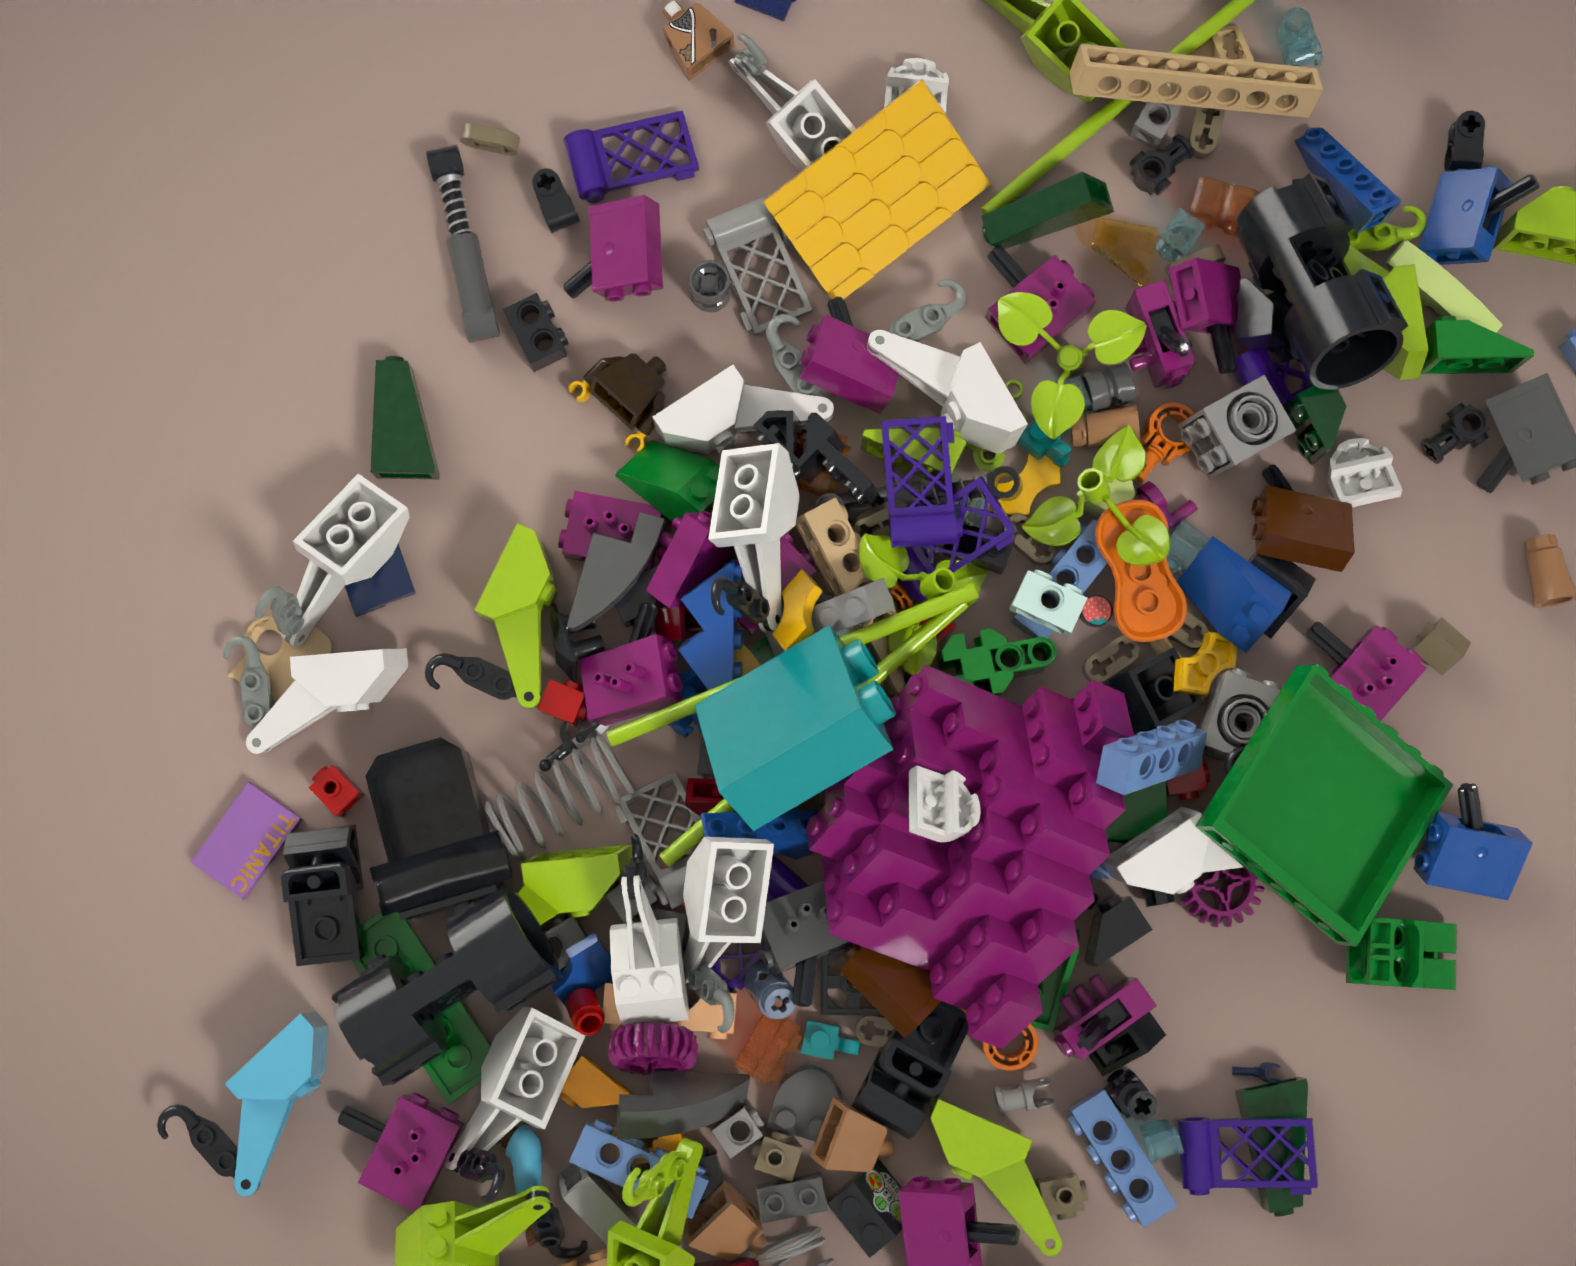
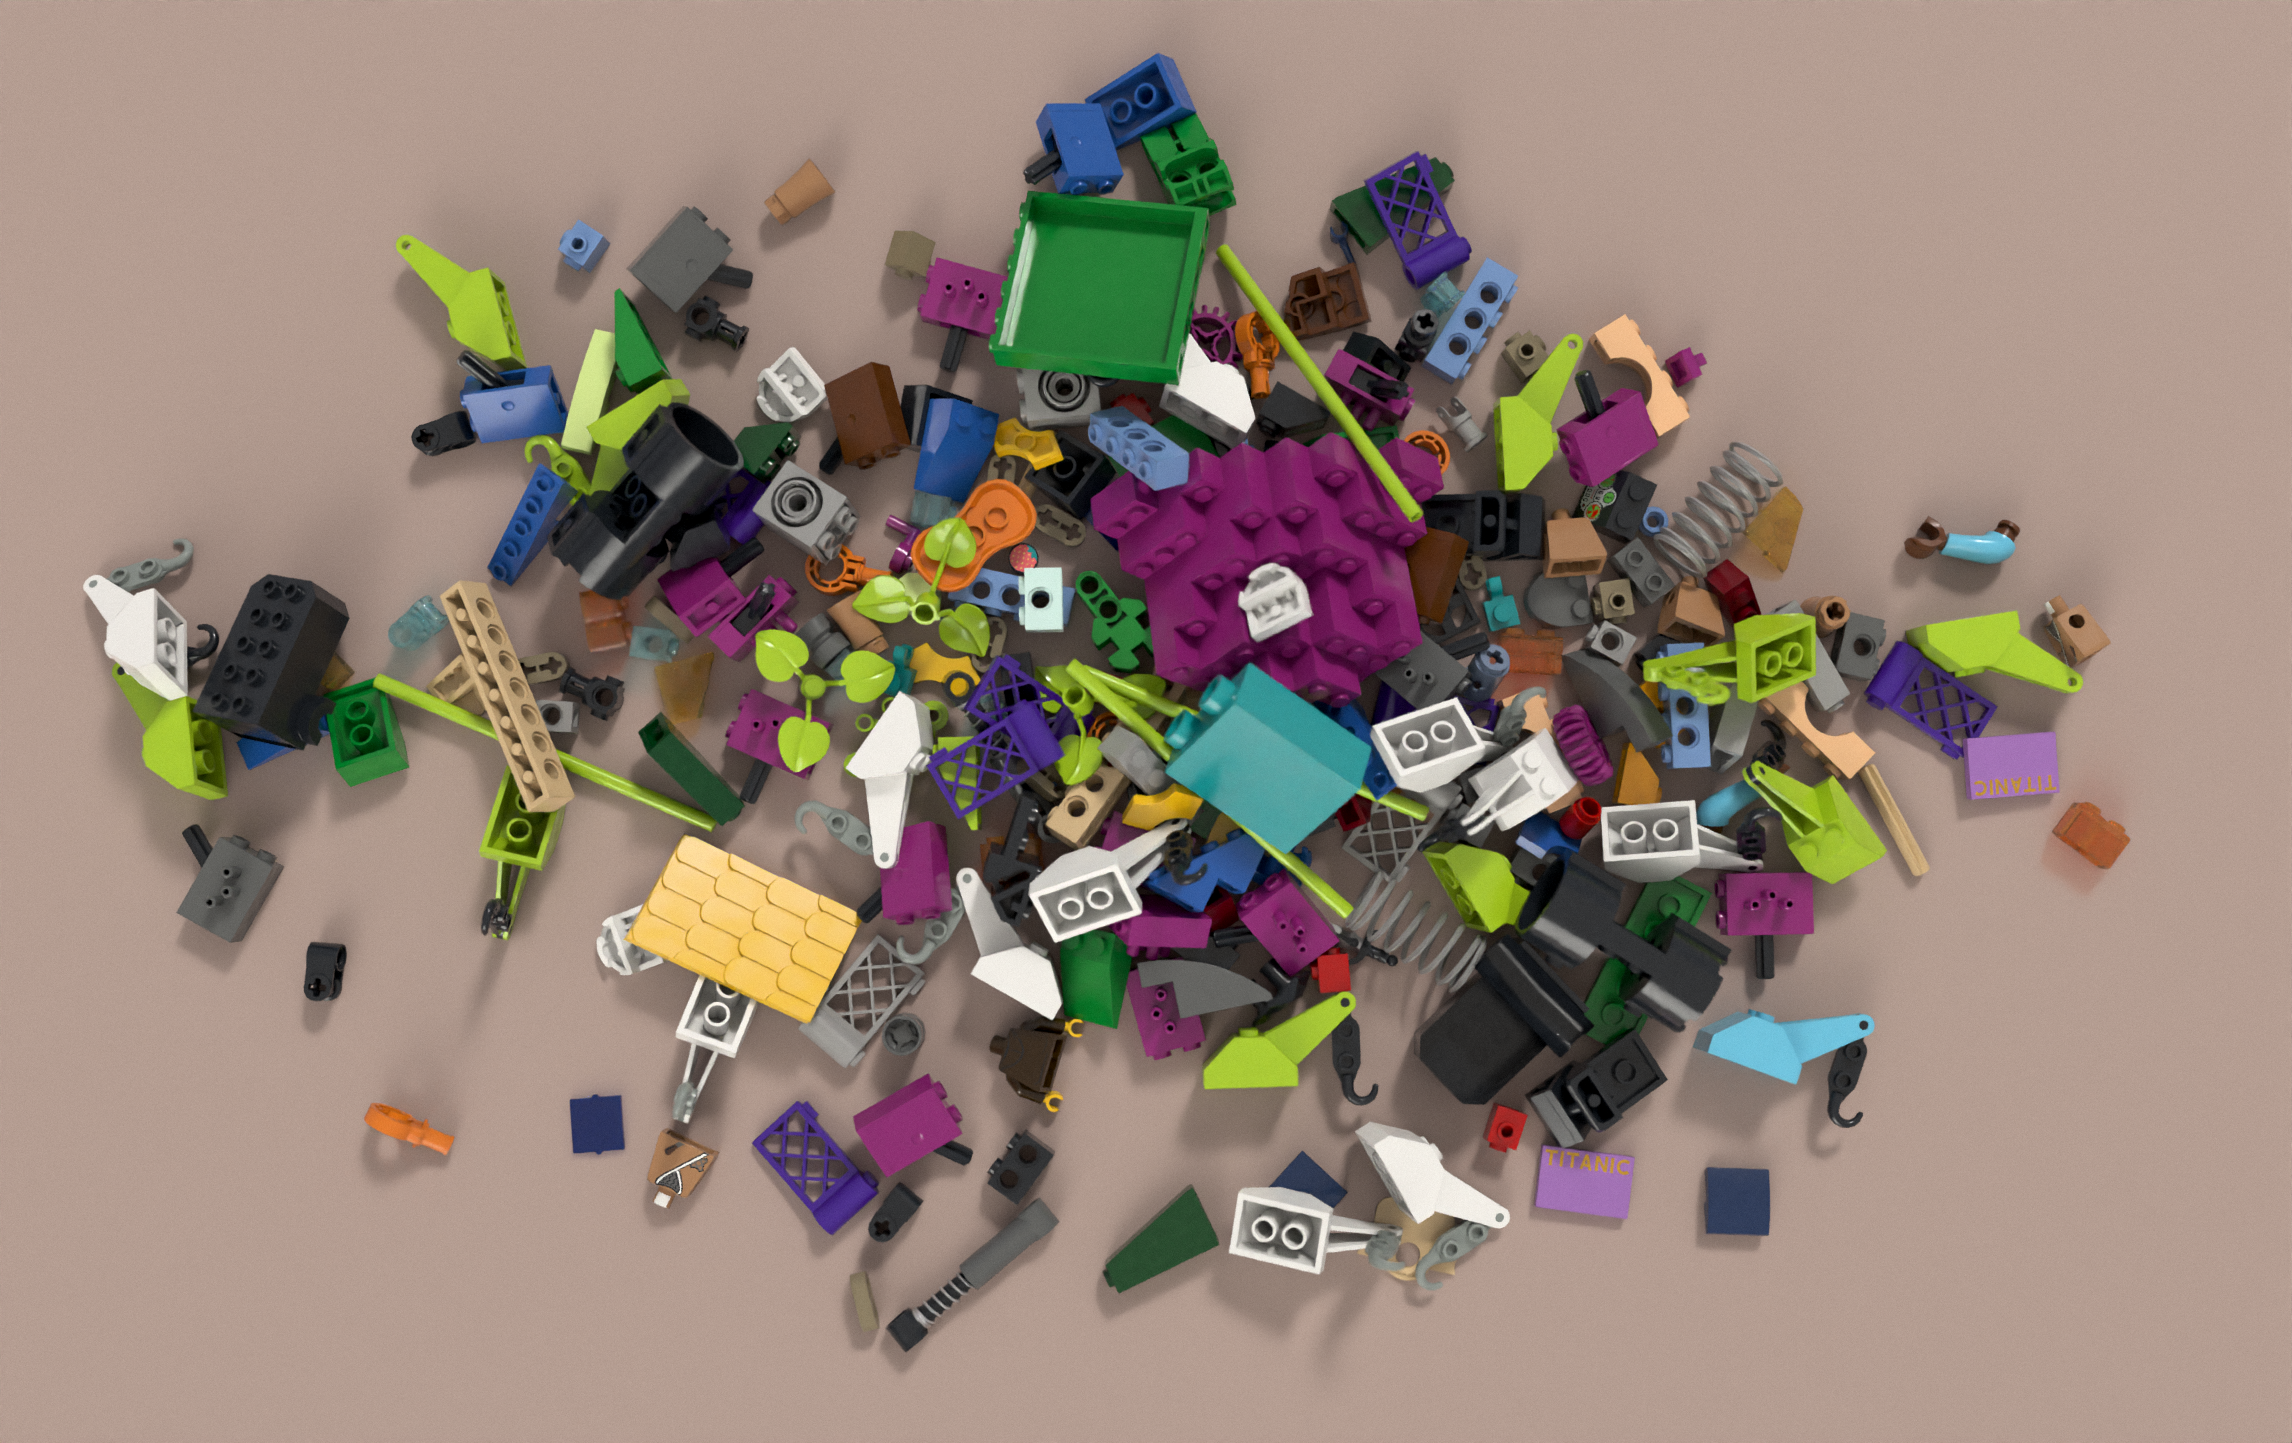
camera: 120 degrees left, 5 degrees up
(149, 976) = (1737, 1201): none -> dark blue slope
(835, 1248) = (1661, 518): none -> medium blue plate
(1129, 967) = (1320, 384): none -> lime piece
(1184, 924) = (1257, 358): none -> orange pin
(1206, 1022) = (1325, 302): none -> reddish brown slope
(1491, 945) = (1144, 100): none -> blue slope

